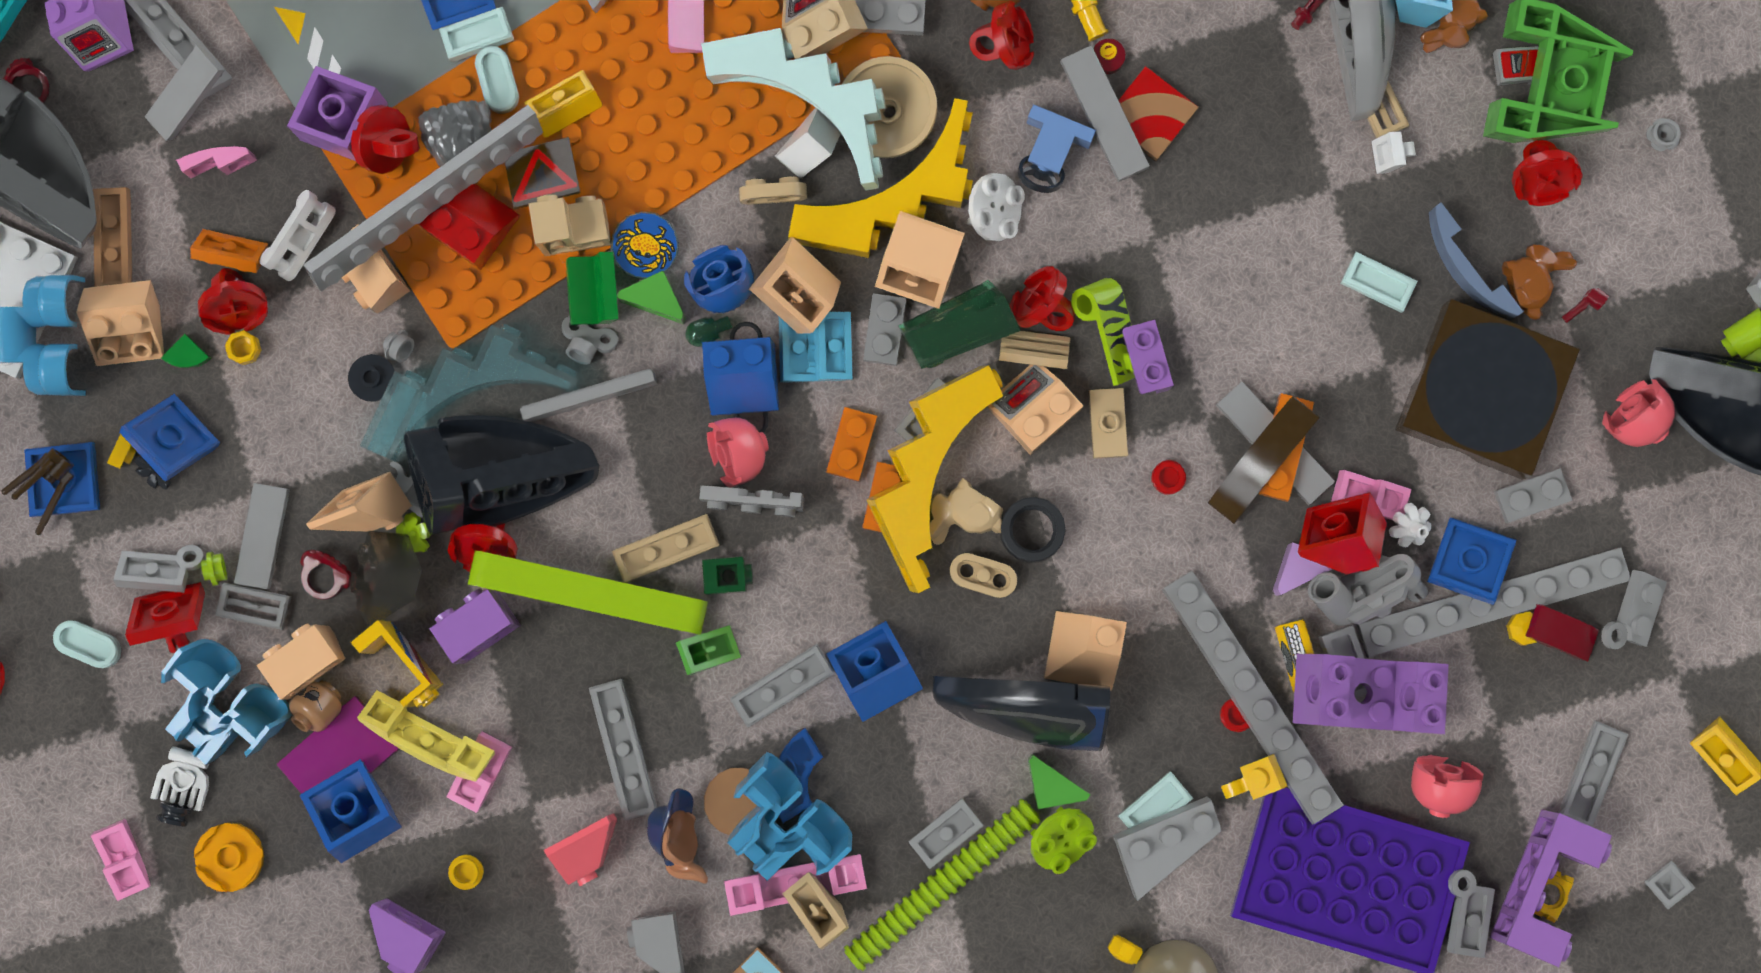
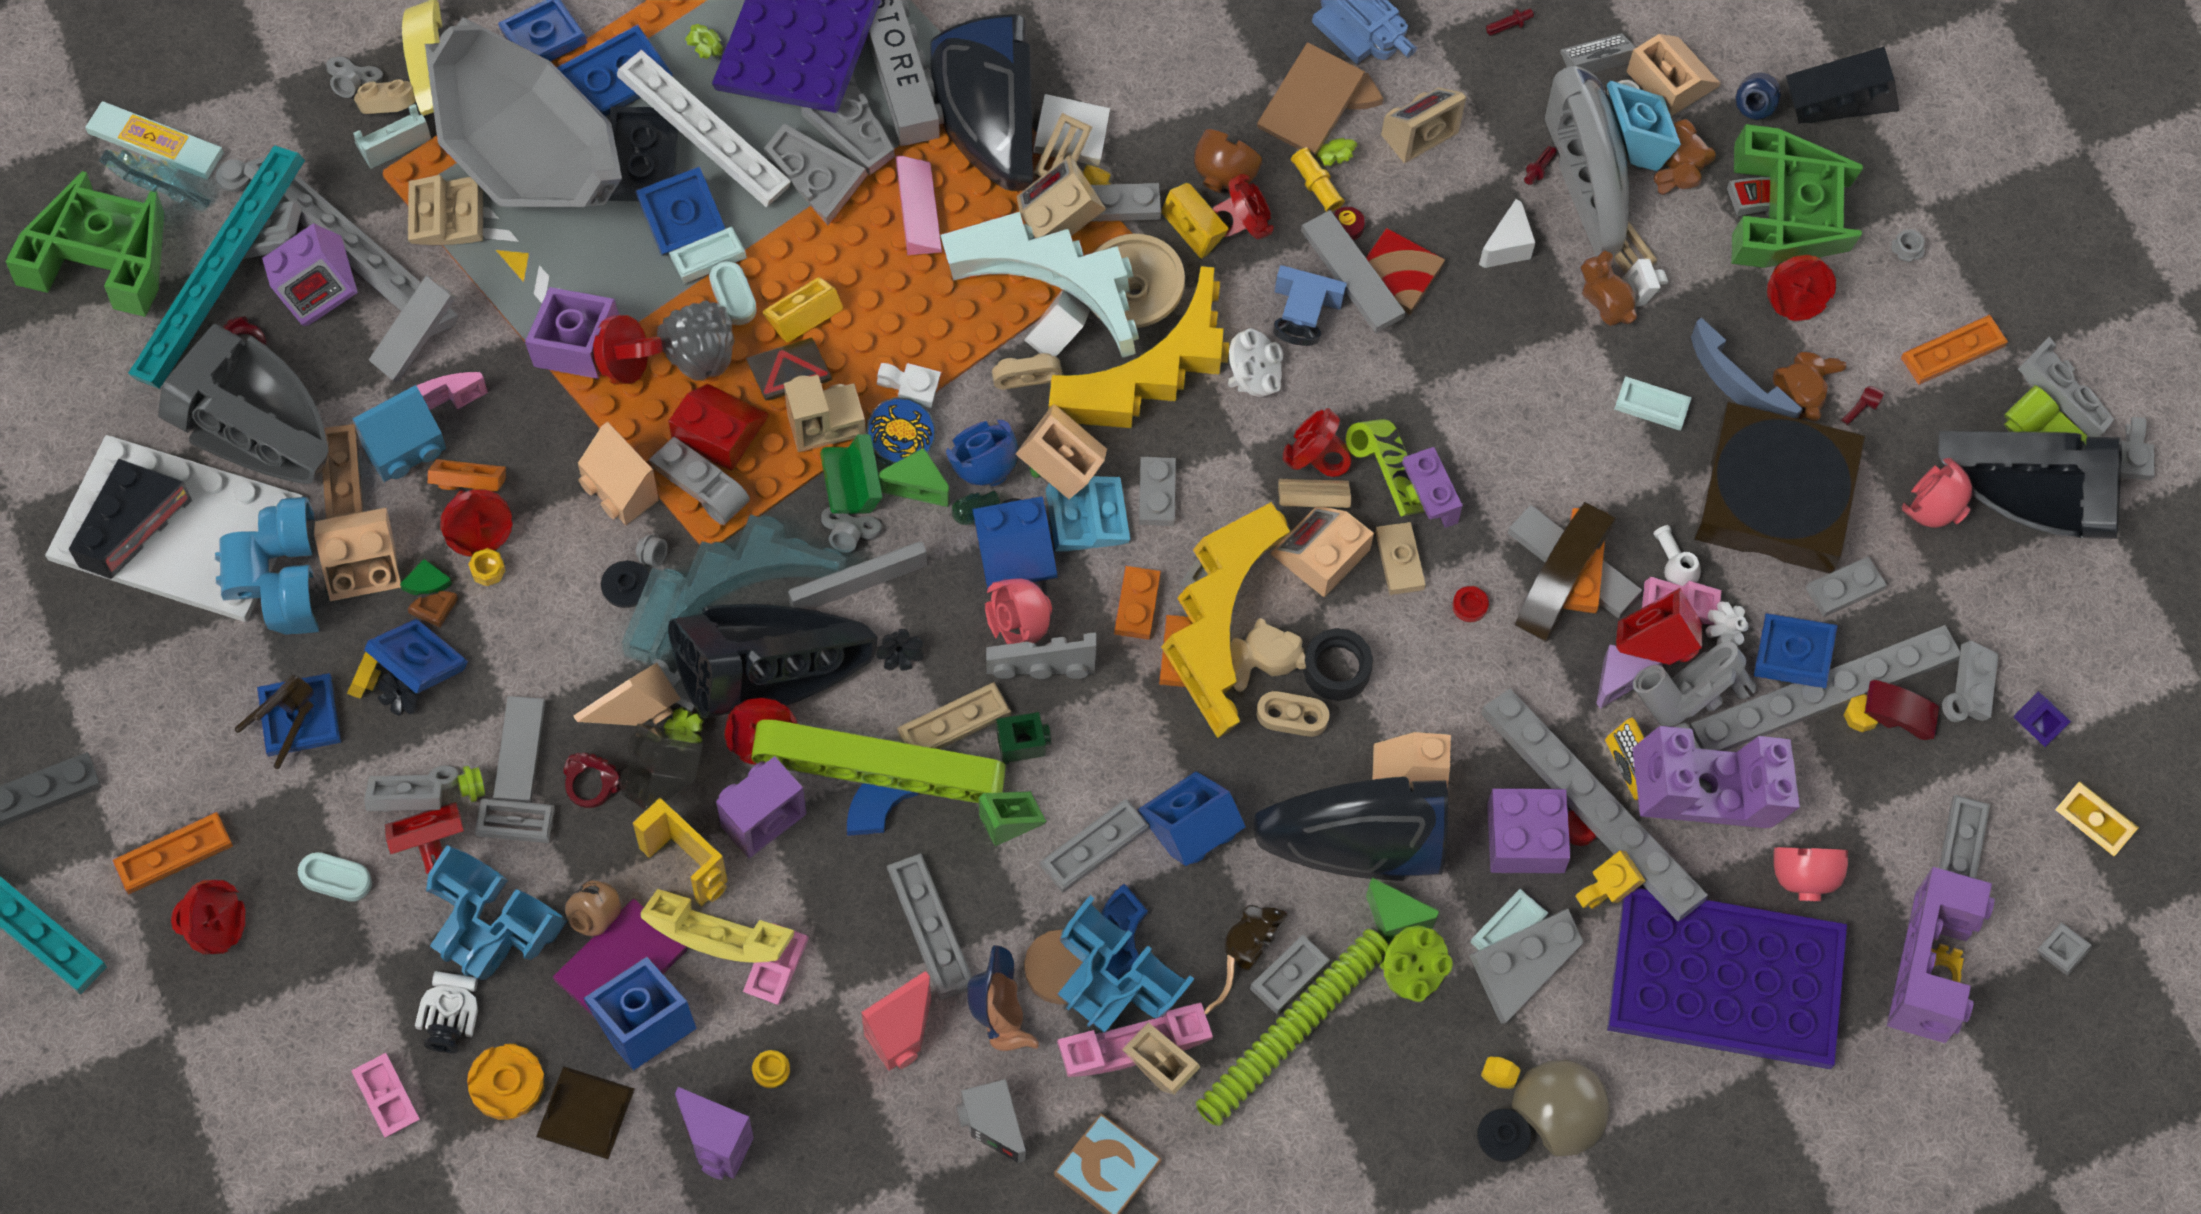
camera: 15 degrees left, 20 degrees down
(166, 207) = (399, 434): none -> dark azure slope
(192, 382) = (434, 607): none -> dark orange tile
(298, 236) = (538, 454): white plate -> none
(298, 892) = (585, 1112): none -> dark brown piece
(301, 660) = (576, 854): light nougat slope -> none
(423, 198) = (673, 390): light grey plate -> none
(447, 281) = (701, 479): none -> light grey plate
(579, 629) = (871, 808): none -> blue tile
(621, 473) = (900, 649): none -> black plant
(663, 197) = (914, 383): none -> white plate
(909, 799) = (1247, 940): none -> dark brown animal
(919, 259) = (1186, 414): light nougat slope -> none
(956, 39) = (1193, 219): none -> yellow slope
(959, 325) = (1235, 473): clear green wedge -> none
(1187, 719) = (1528, 831): none -> medium lavender brick
(1268, 91) = (1511, 239): none -> white slope
(1354, 161) = (1608, 291): none -> dark orange animal
(1368, 459) = (1674, 570): none -> white bar
(1469, 916) = (1861, 1000): light grey hinge -> none
(1687, 252) = (1954, 349): none -> orange tile
(1695, 652) = (2041, 719): none -> dark purple slope

